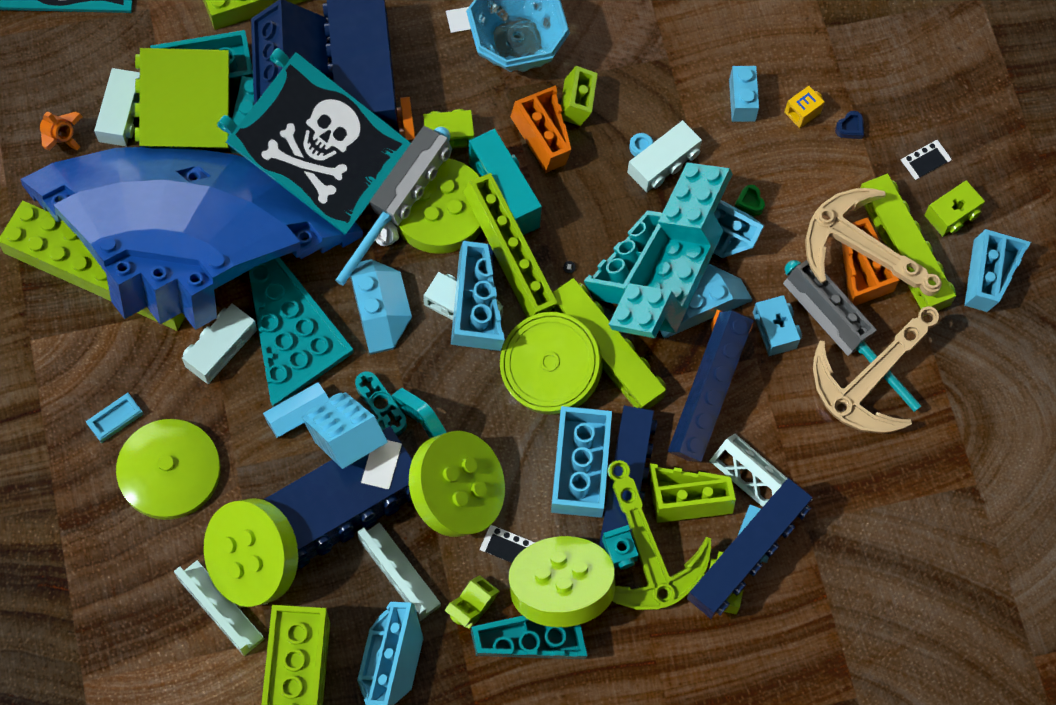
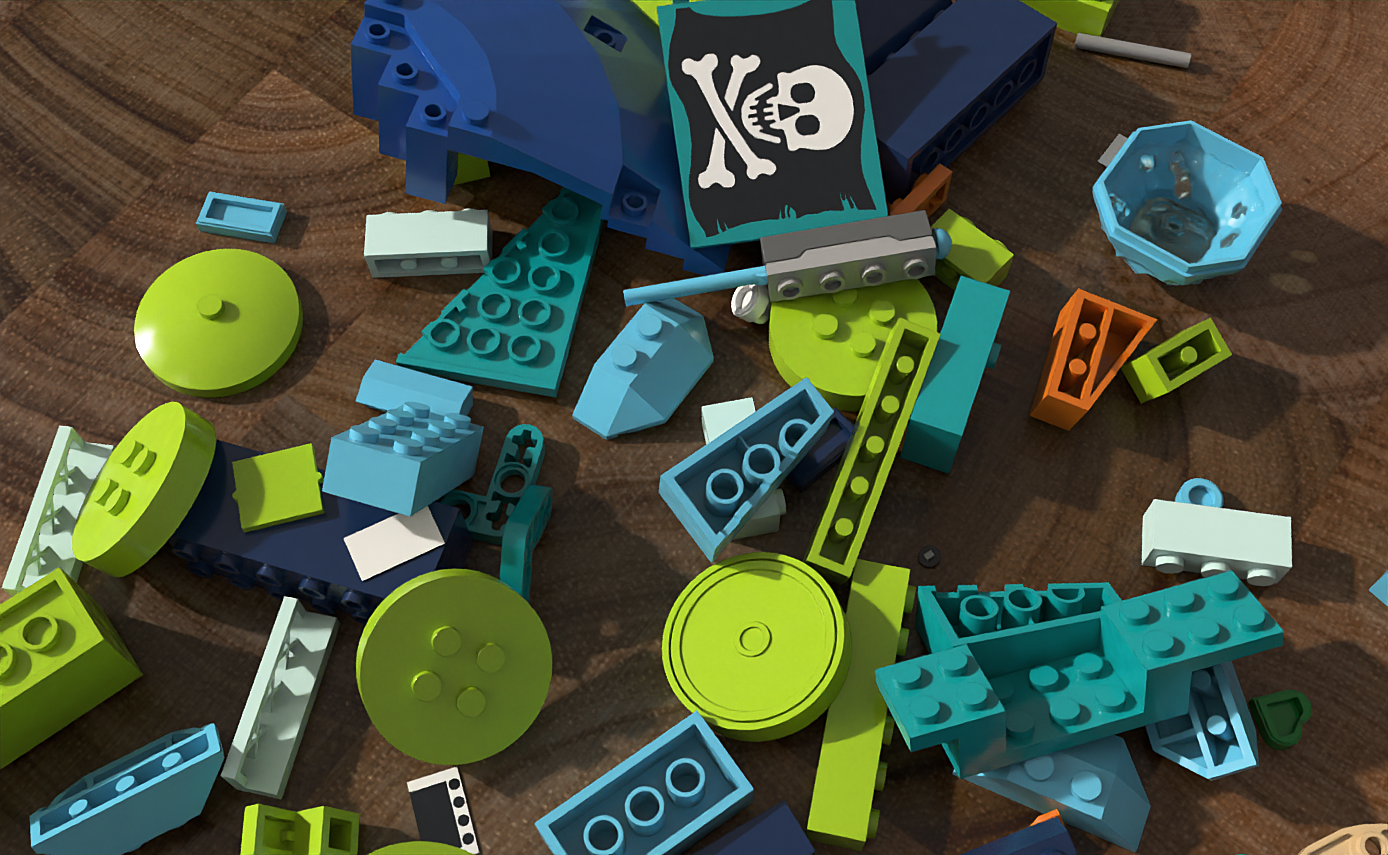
camera: 55 degrees right, 5 degrees down
(310, 491) = (278, 487): none -> lime piece

